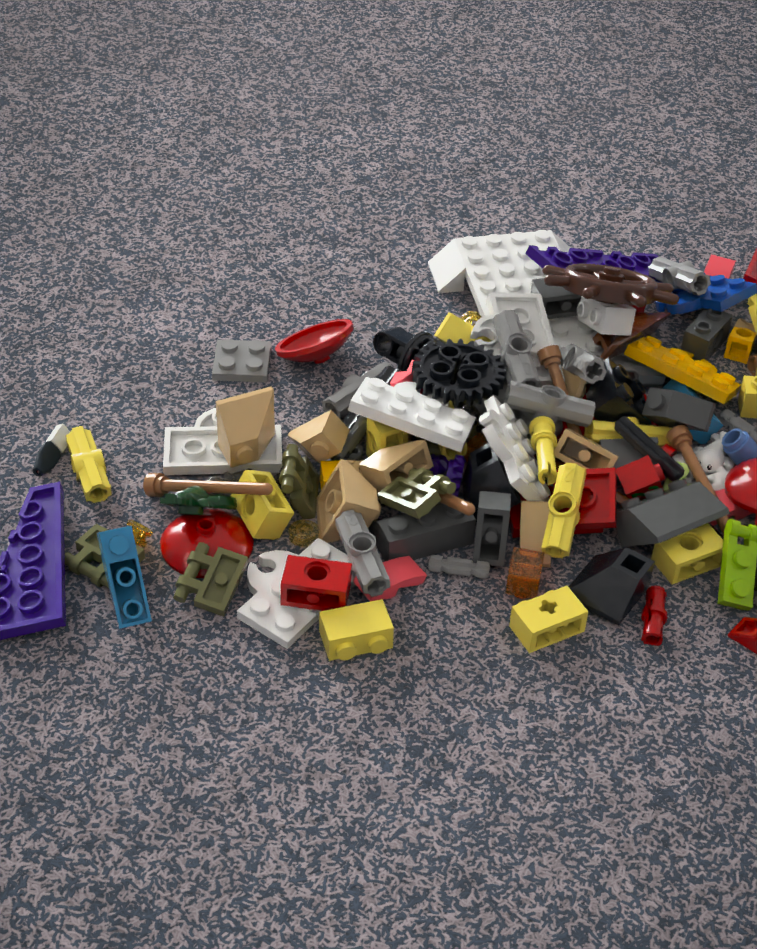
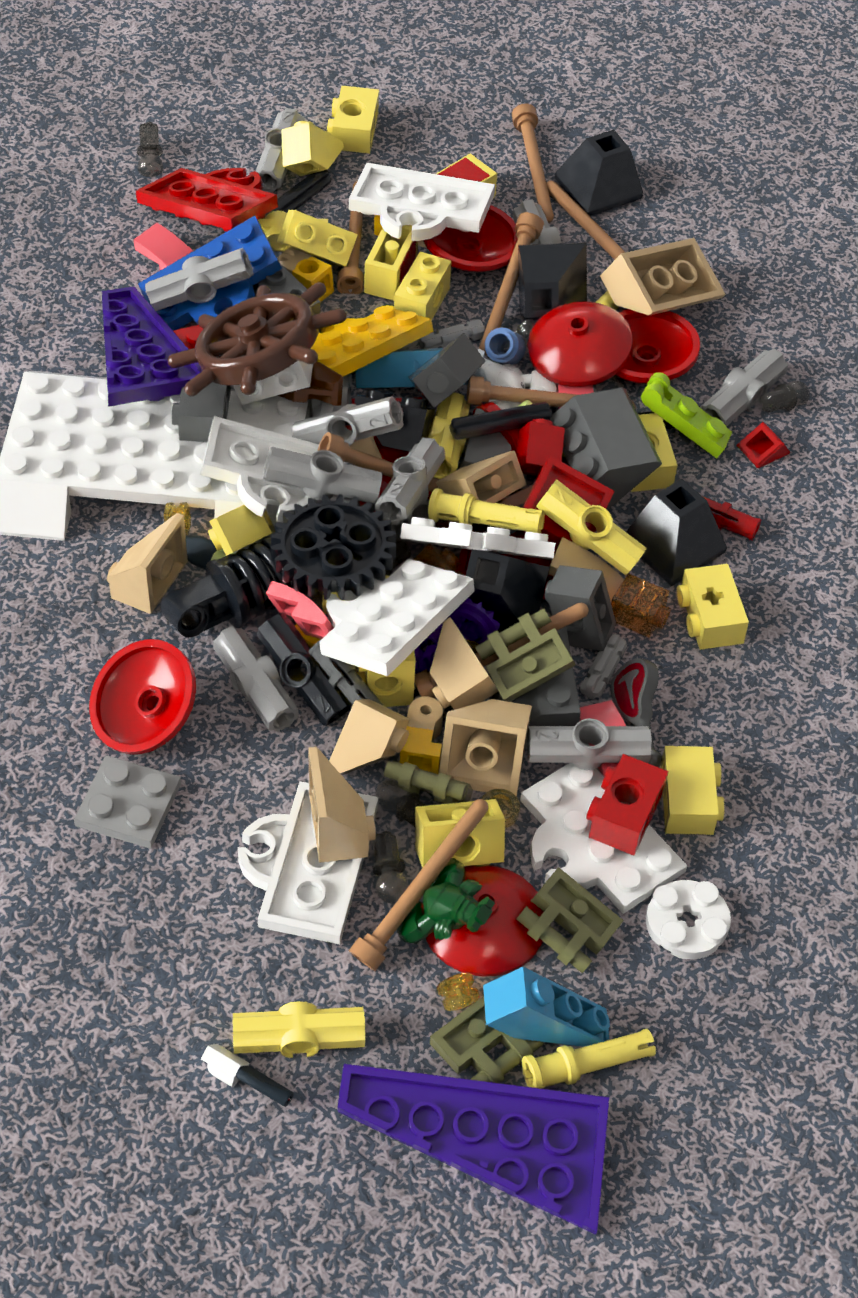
camera: 75 degrees left, 10 degrees up
(93, 601) = (569, 1063): none -> light yellow pin
(246, 637) = (700, 900): none -> white plate
(422, 315) = (150, 566): none -> tan slope
(422, 587) = (633, 693): none -> dark grey piece

